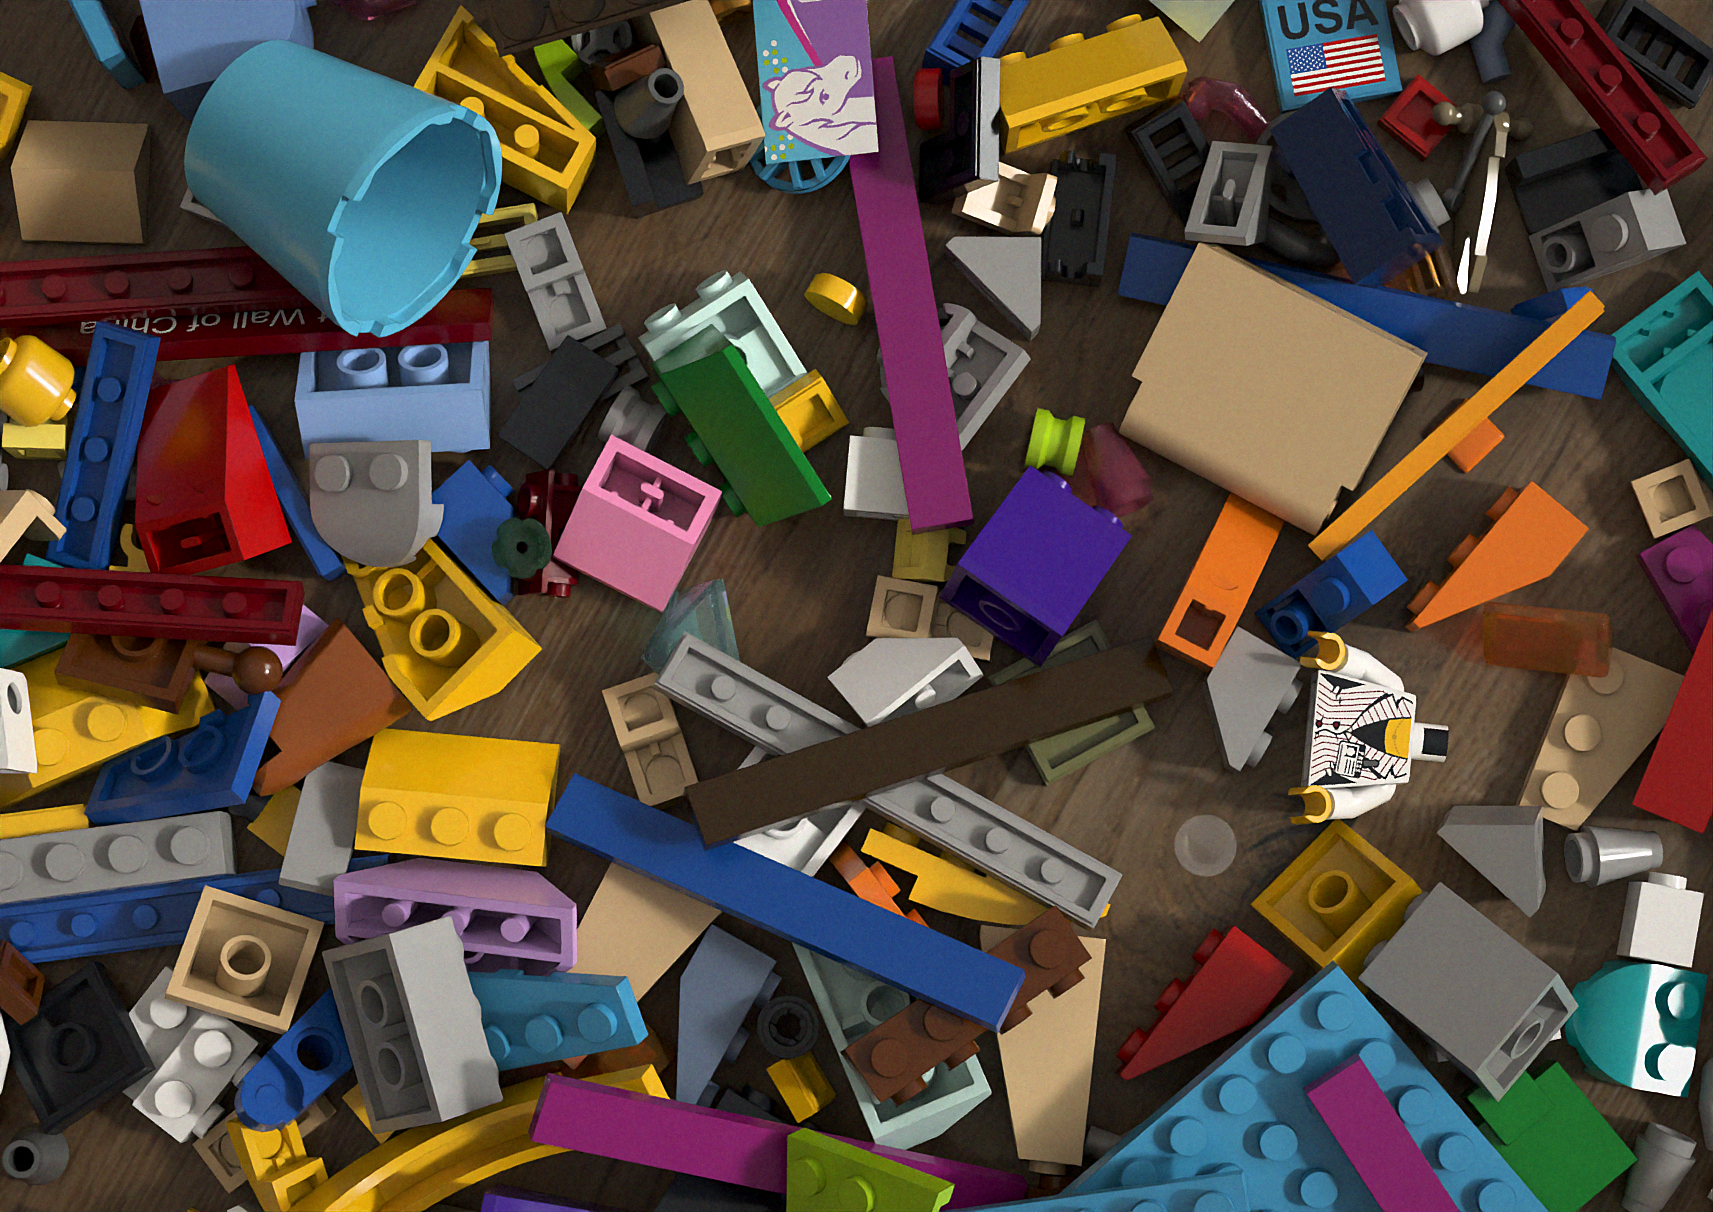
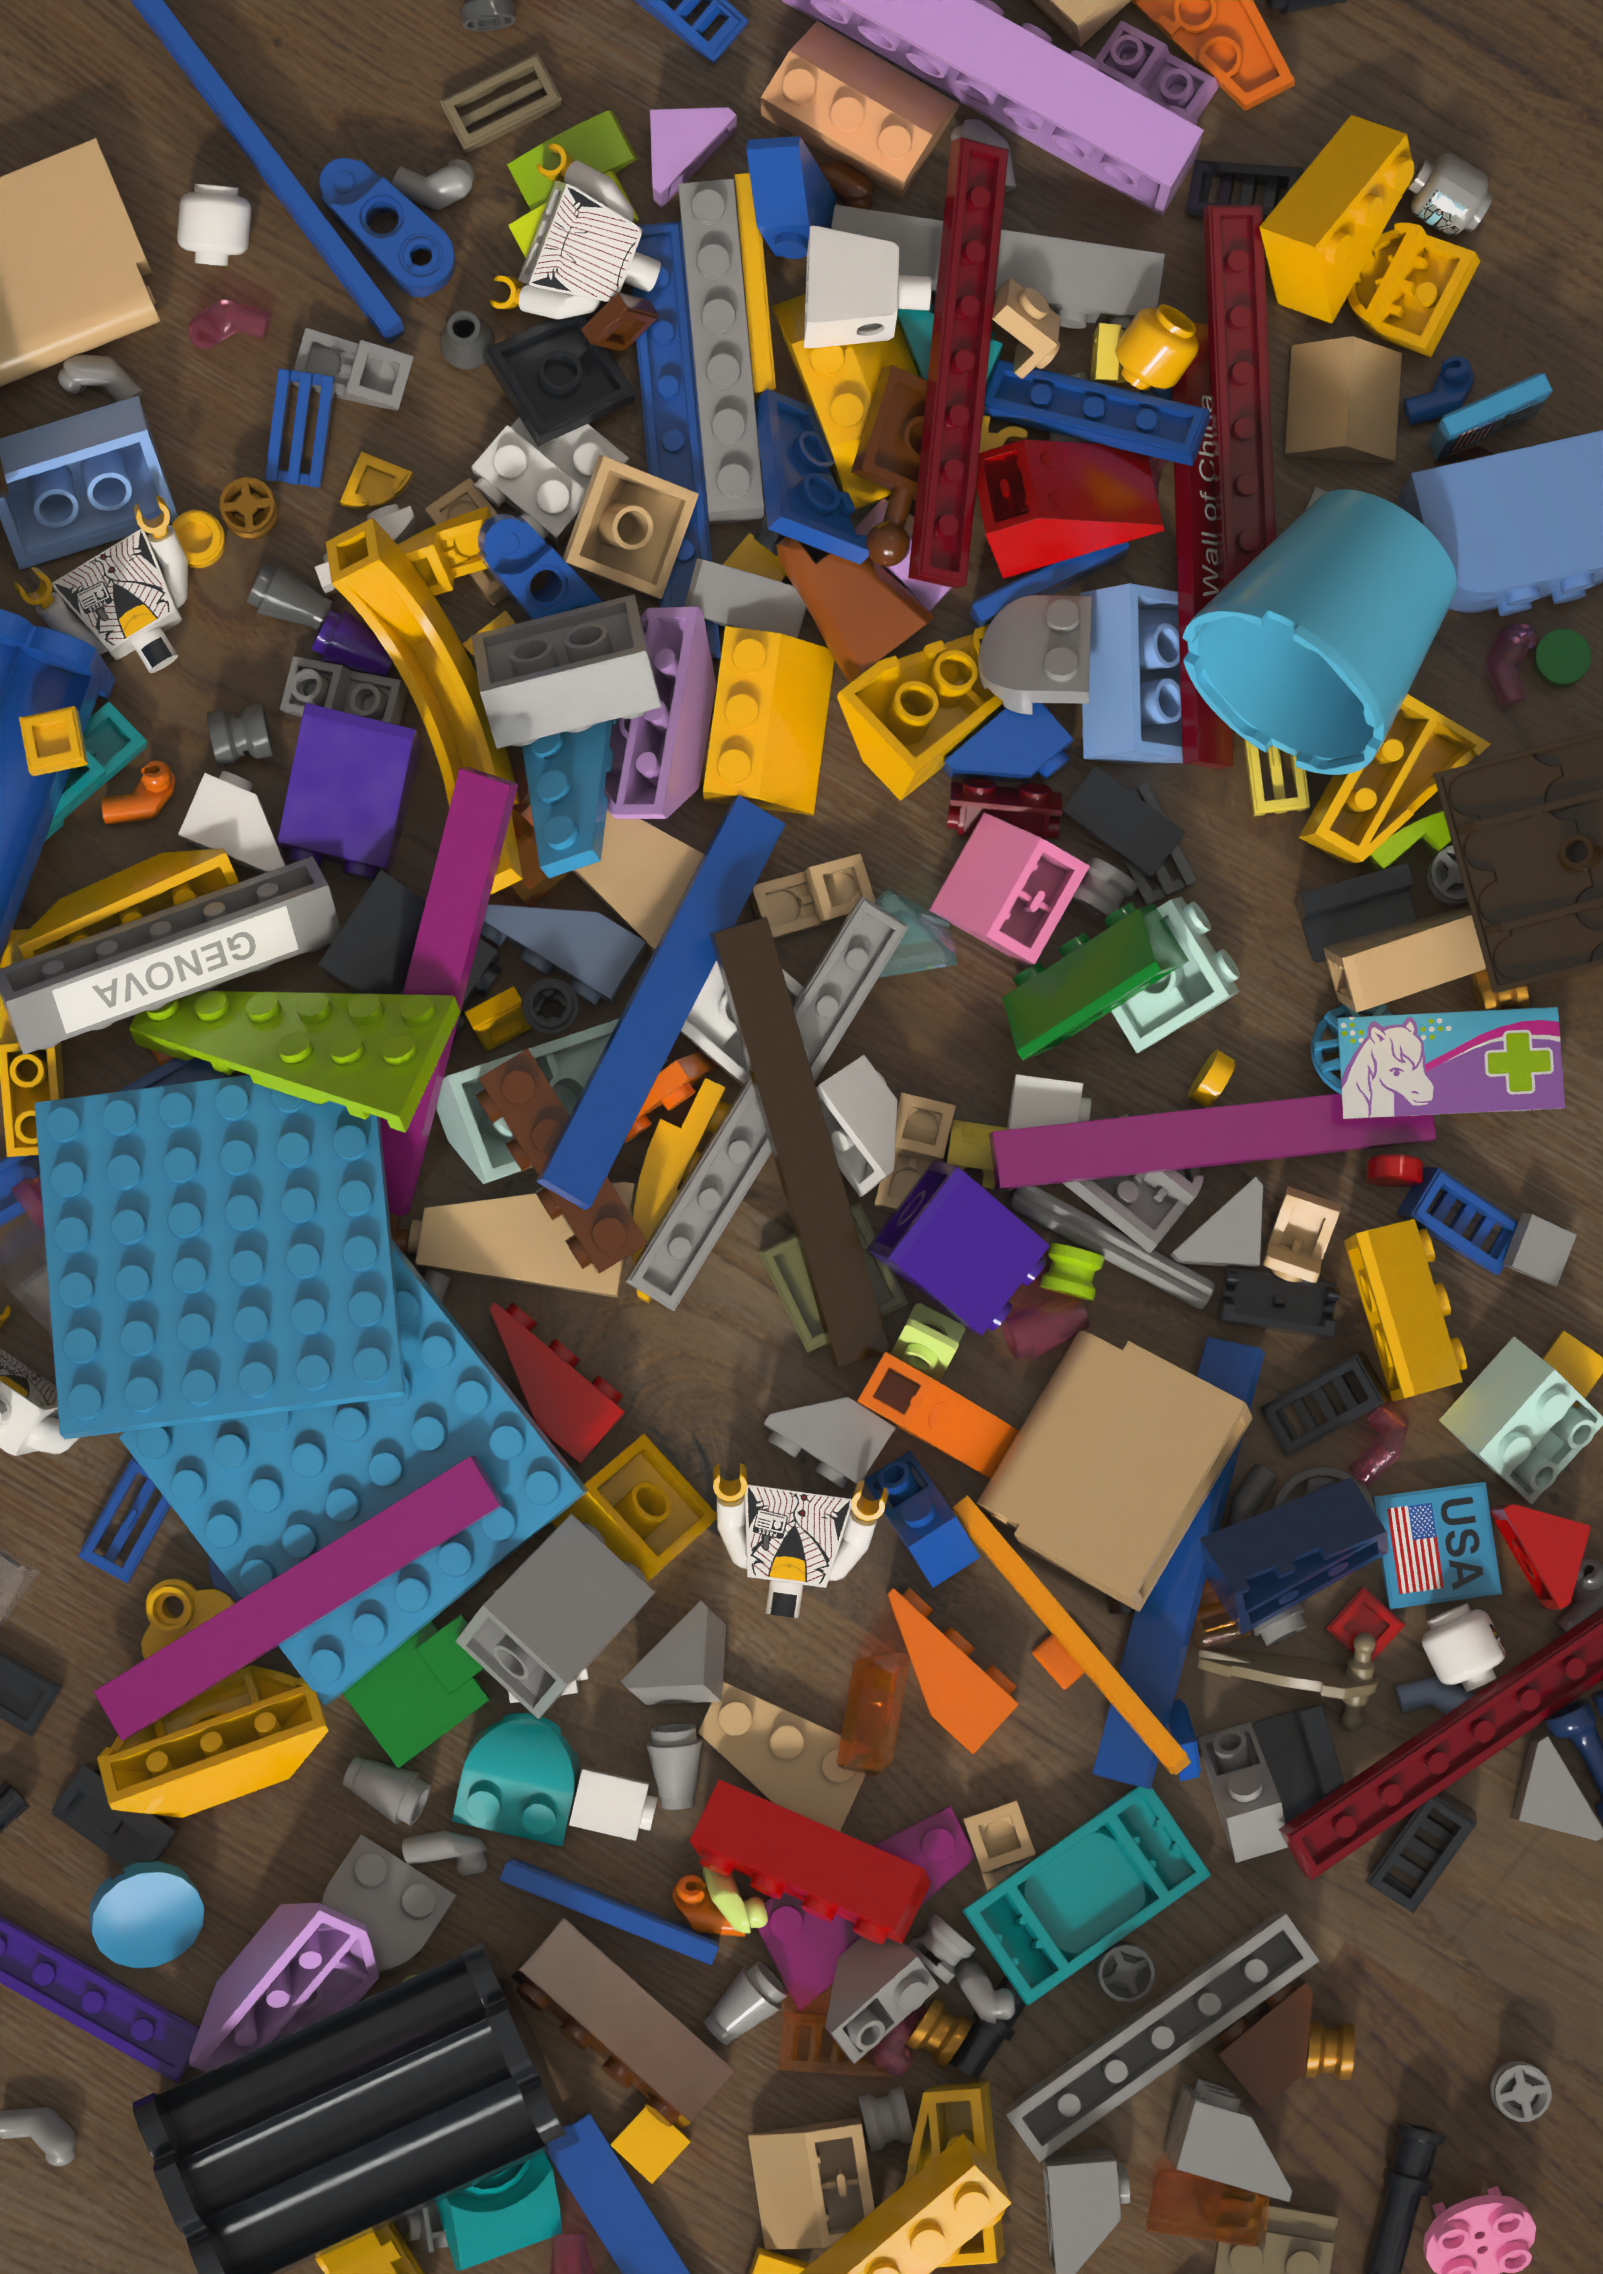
camera: 85 degrees right, 0 degrees up
(74, 69) = (1447, 394): none -> blue arm
(537, 542) = (983, 796): clear green plate -> none
(555, 281) = (1236, 824): light grey slope -> none
(626, 66) = (1428, 892): reddish brown tile -> none
(649, 103) = (1391, 909): dark grey cone -> none
(809, 410) = (1107, 1047): yellow tile -> none
(969, 152) = (1337, 1197): black tile -> none
(1024, 398) = (1113, 1245): none -> light grey axle
(1148, 600) = (925, 1347): none -> yellowish green bracket
(1205, 845) = (698, 1393): clear plate -> none
(1232, 195) = (1290, 1441): light grey slope -> none
(1492, 104) = (1287, 1651): dark grey hinge -> none

